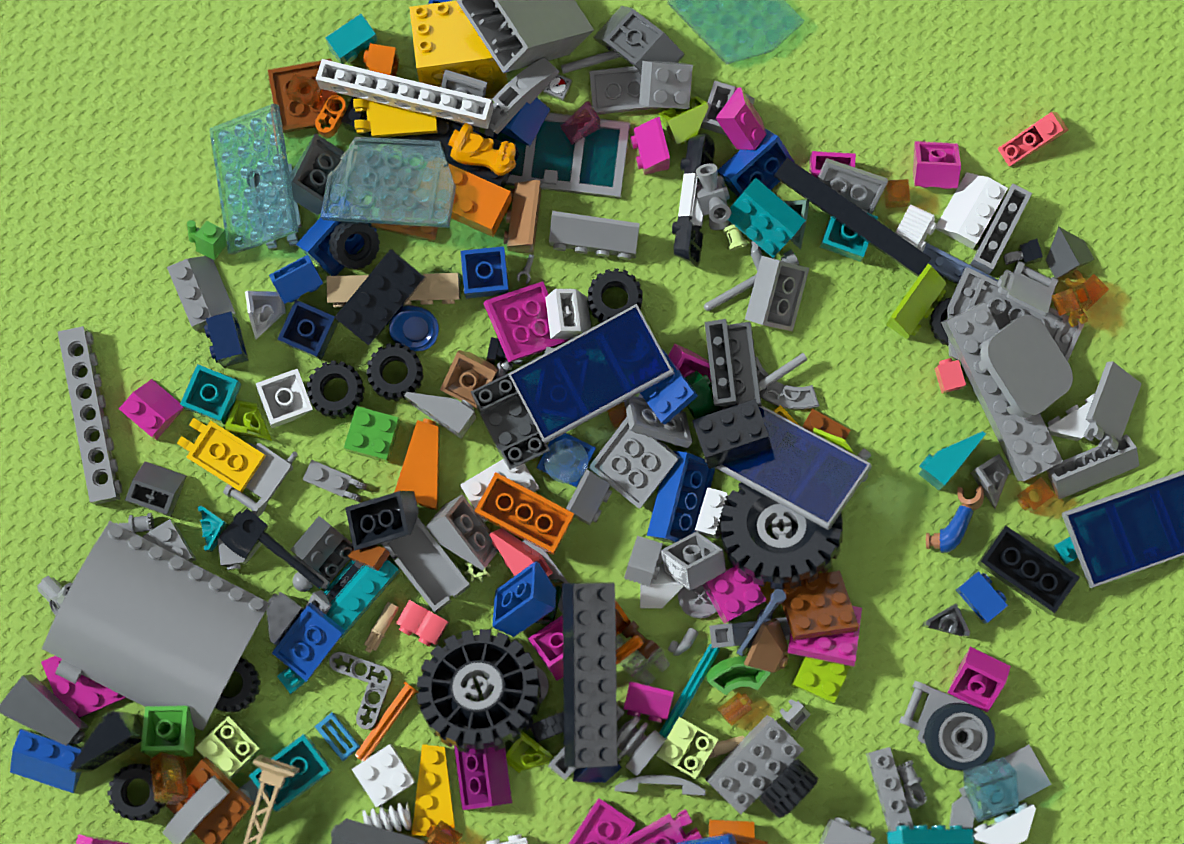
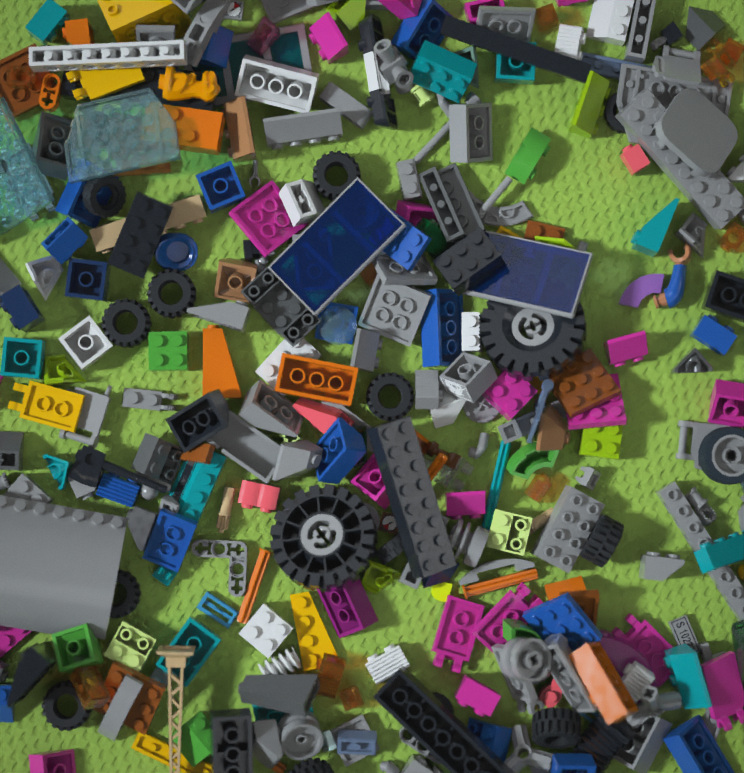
camera: 25 degrees left, 5 degrees up
(269, 569) = (118, 489): none -> blue brick
(475, 595) = (297, 459): none -> light grey slope
(555, 697) = (388, 523): none -> tile
(579, 178) = (276, 84): none -> white slope
(592, 791) = (441, 591): none -> neon yellow tile
(594, 538) = (380, 382): none -> black tyre
(651, 226) = (349, 106): none -> light grey beam
(660, 802) = (499, 582): none -> orange axle
(693, 325) = (408, 180): none -> light grey brick
(826, 343) = (528, 155): none -> bright green brick
(879, 582) = (626, 348): none -> dark pink slope
(914, 521) = (640, 288): none -> medium lavender tile

